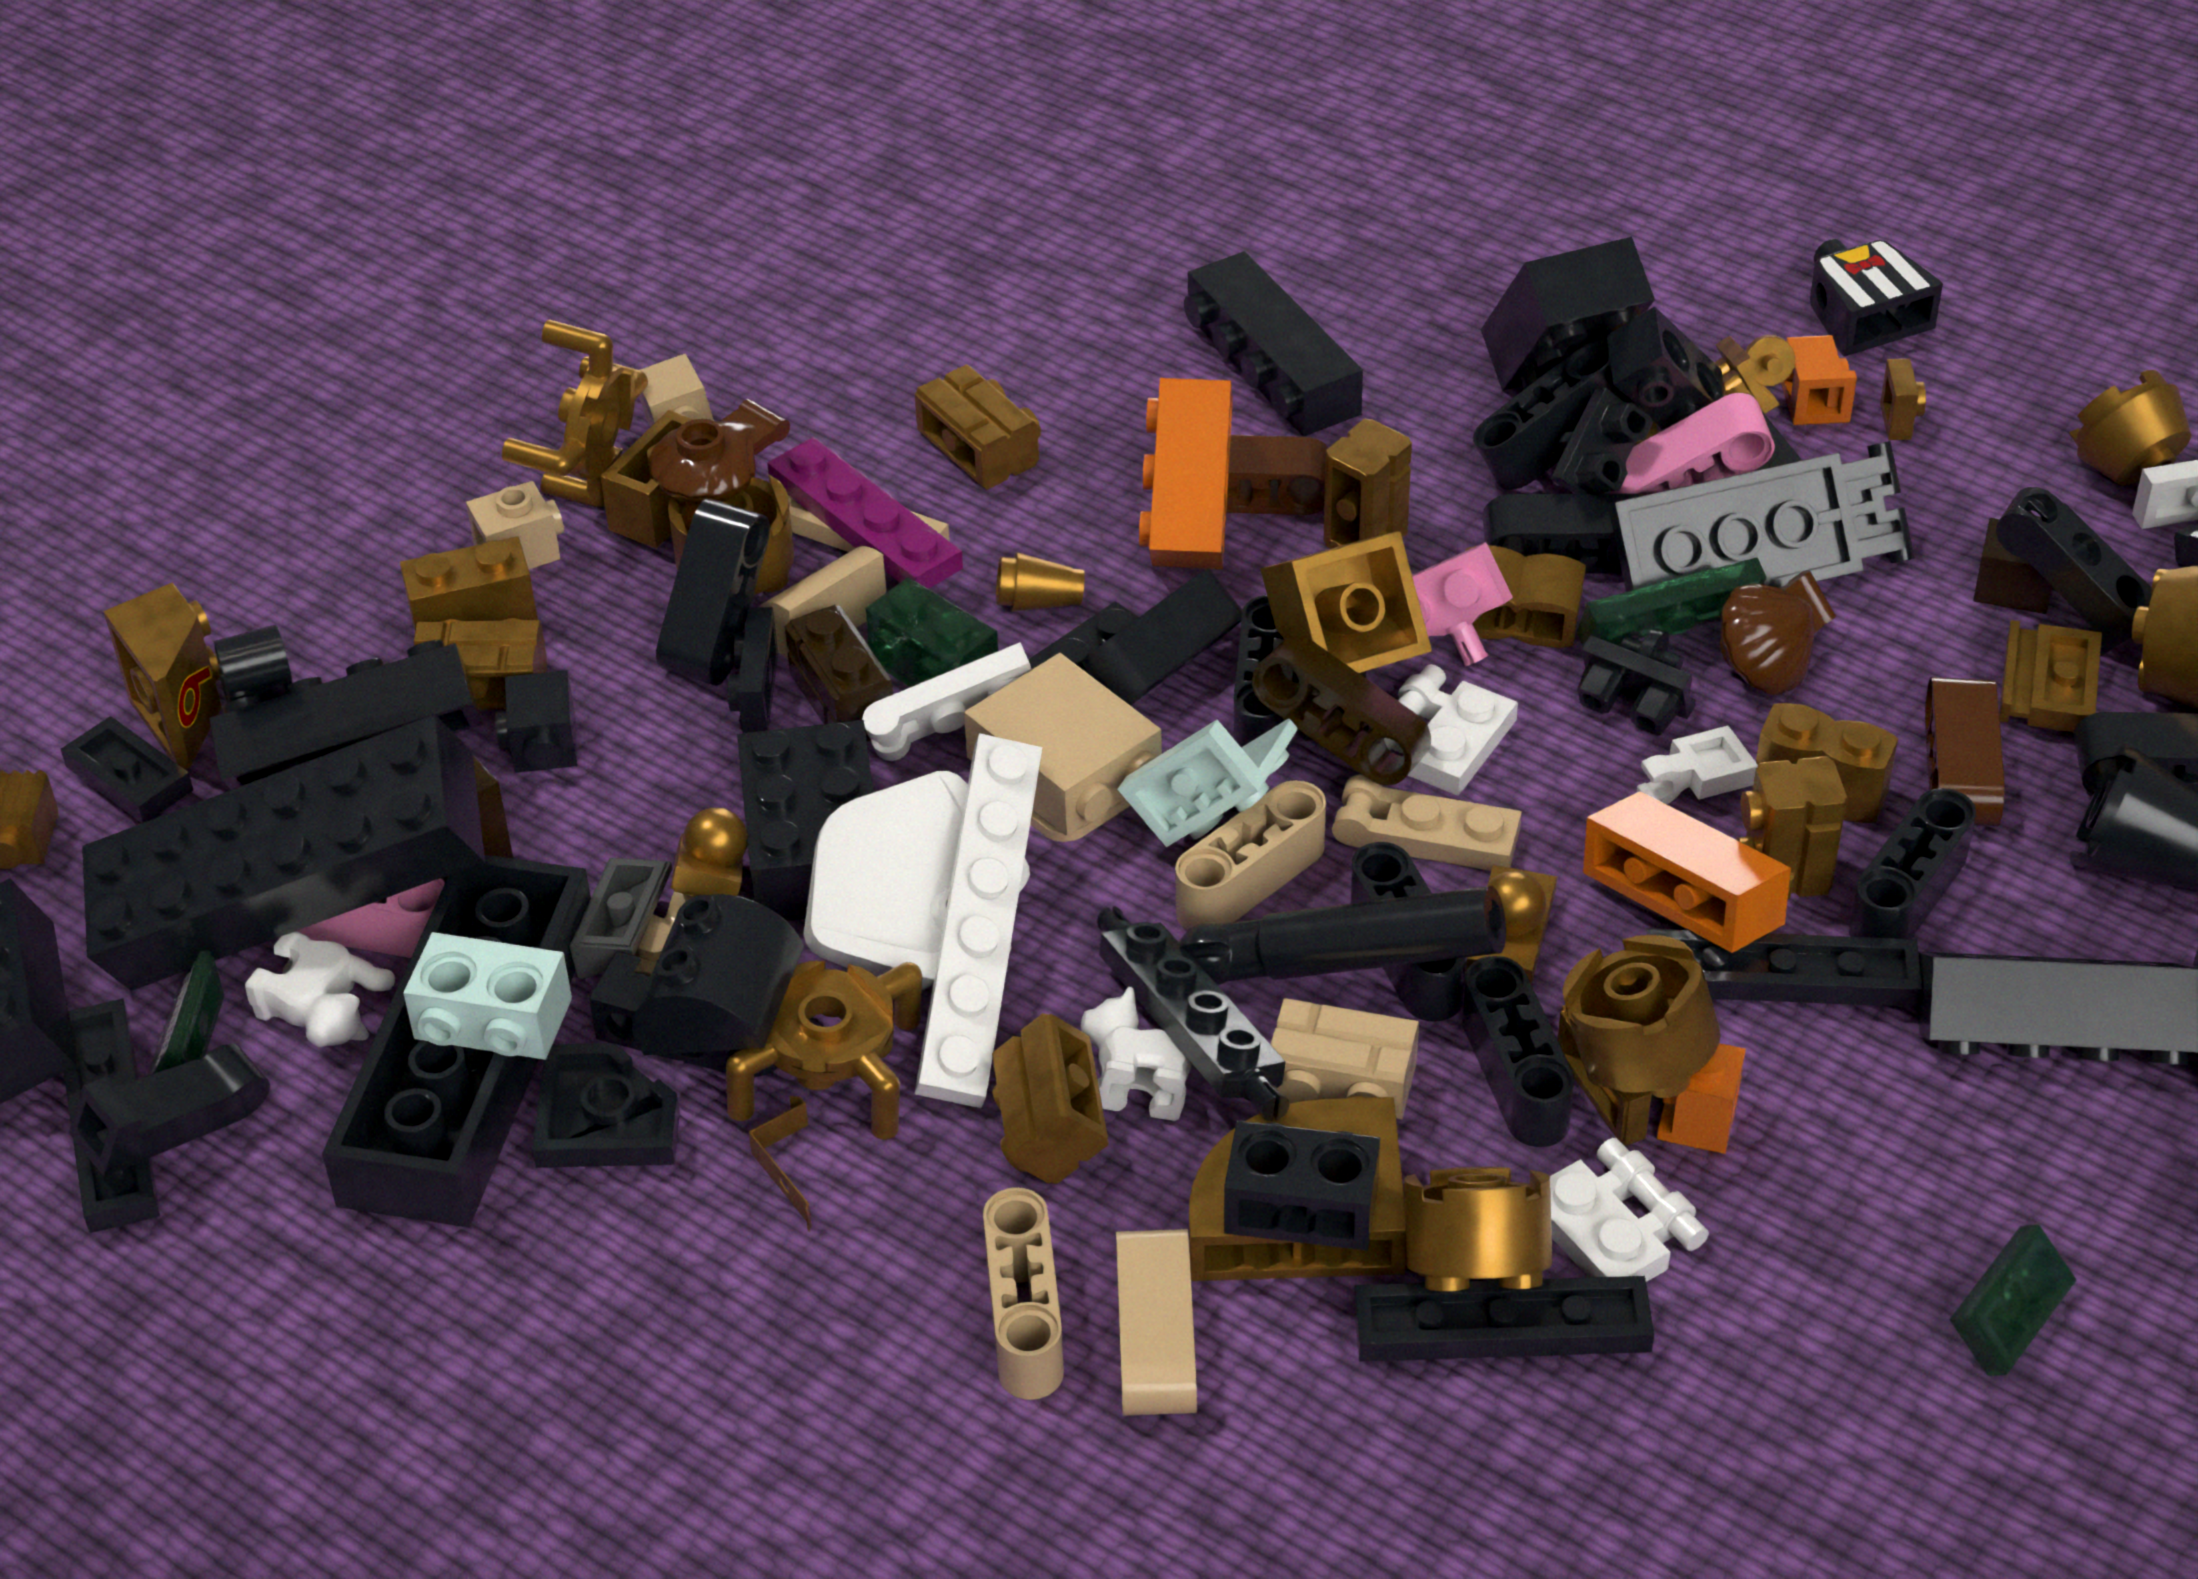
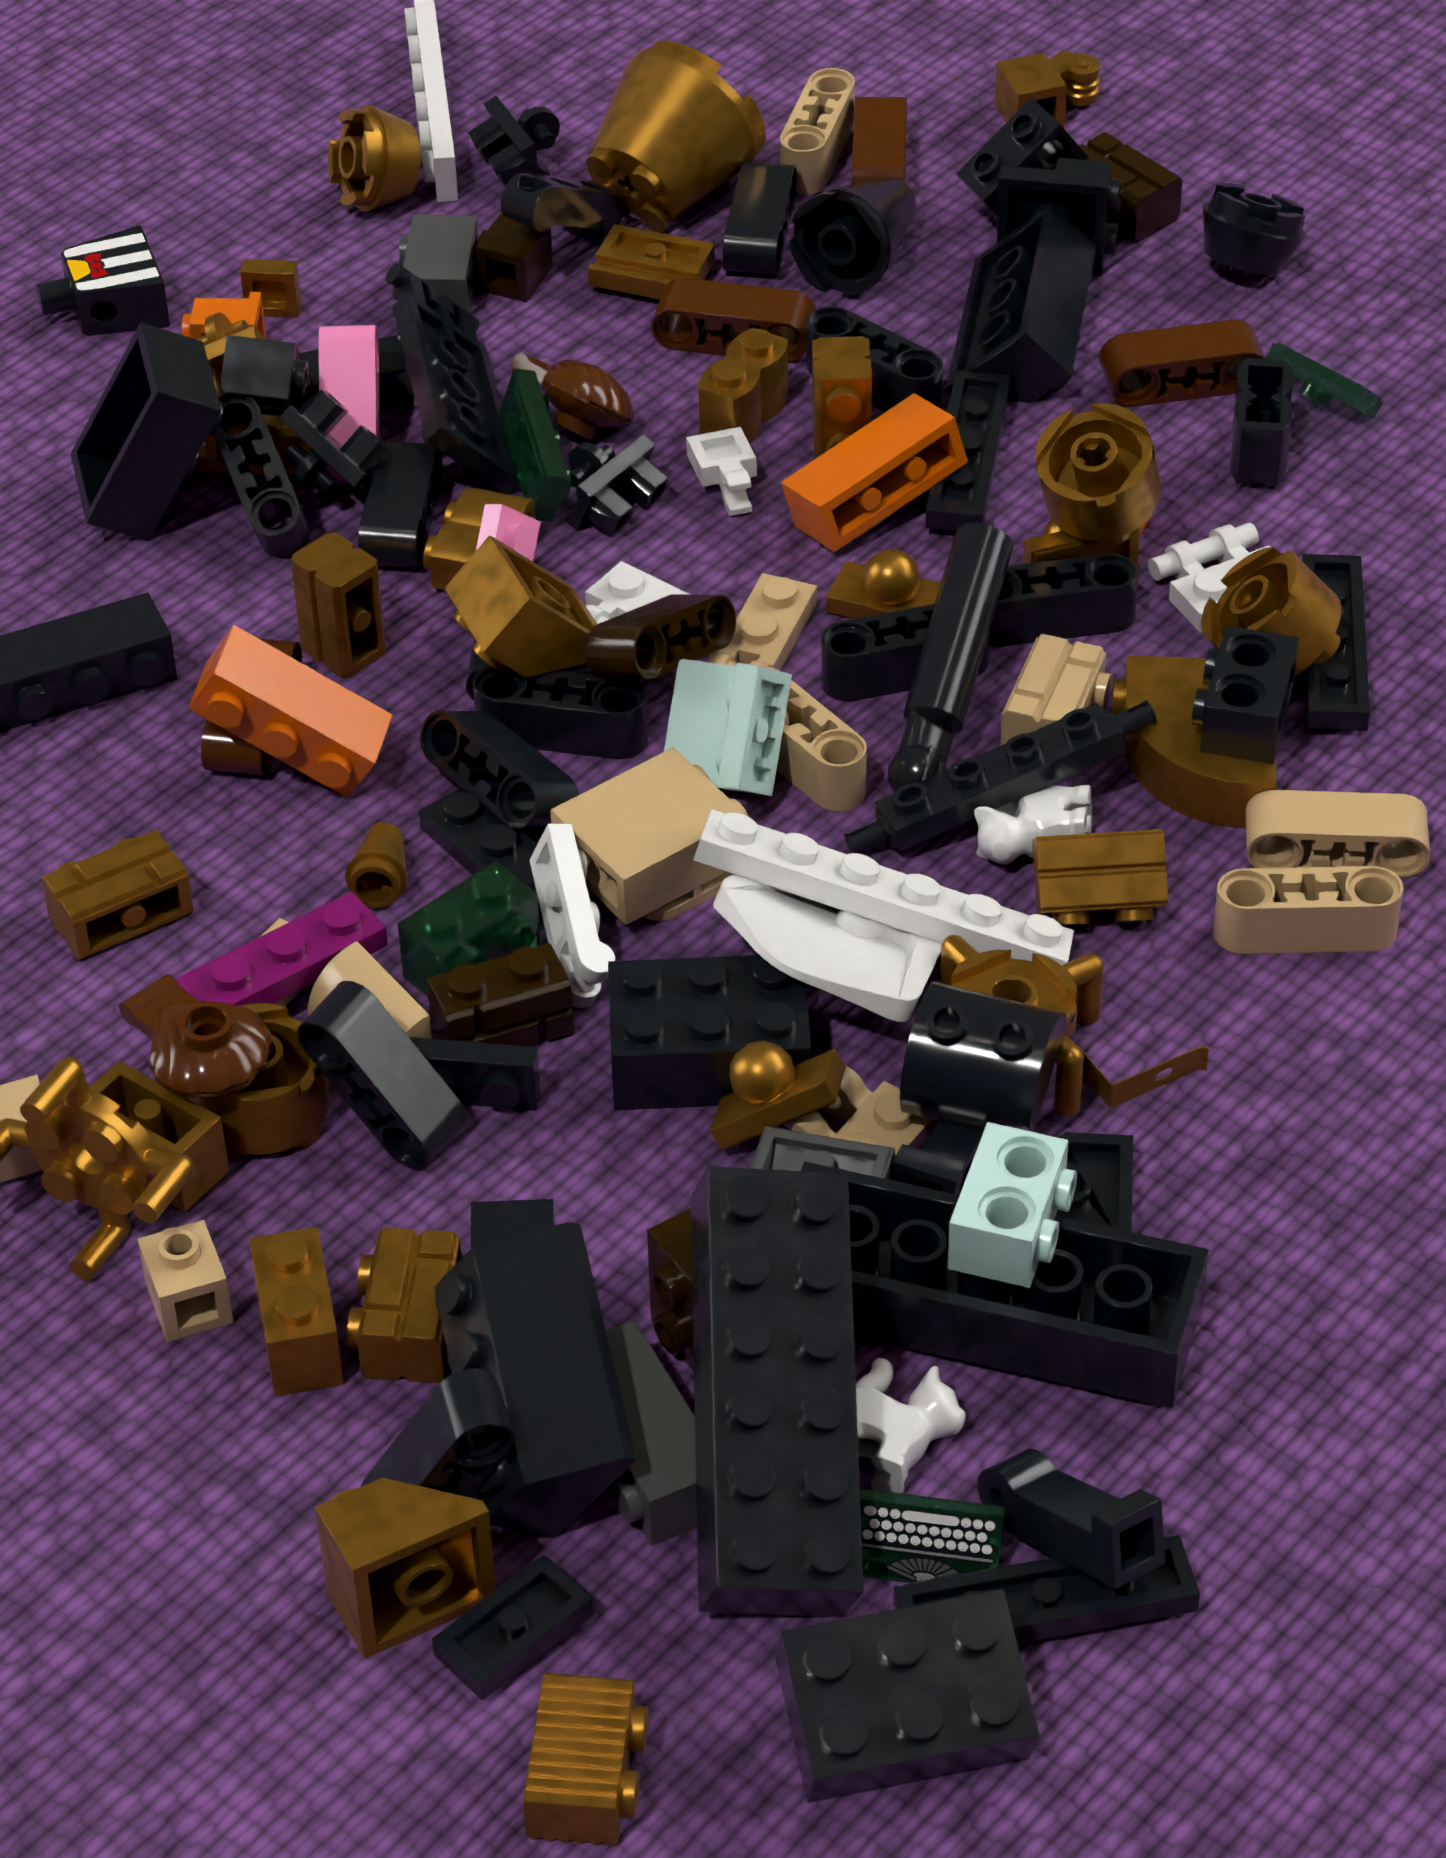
camera: 85 degrees left, 0 degrees up
(1884, 1221) = (1261, 421): none -> black brick
(1953, 508) = (443, 255): none -> dark grey brick
(2010, 1155) = (1177, 362): none -> reddish brown beam

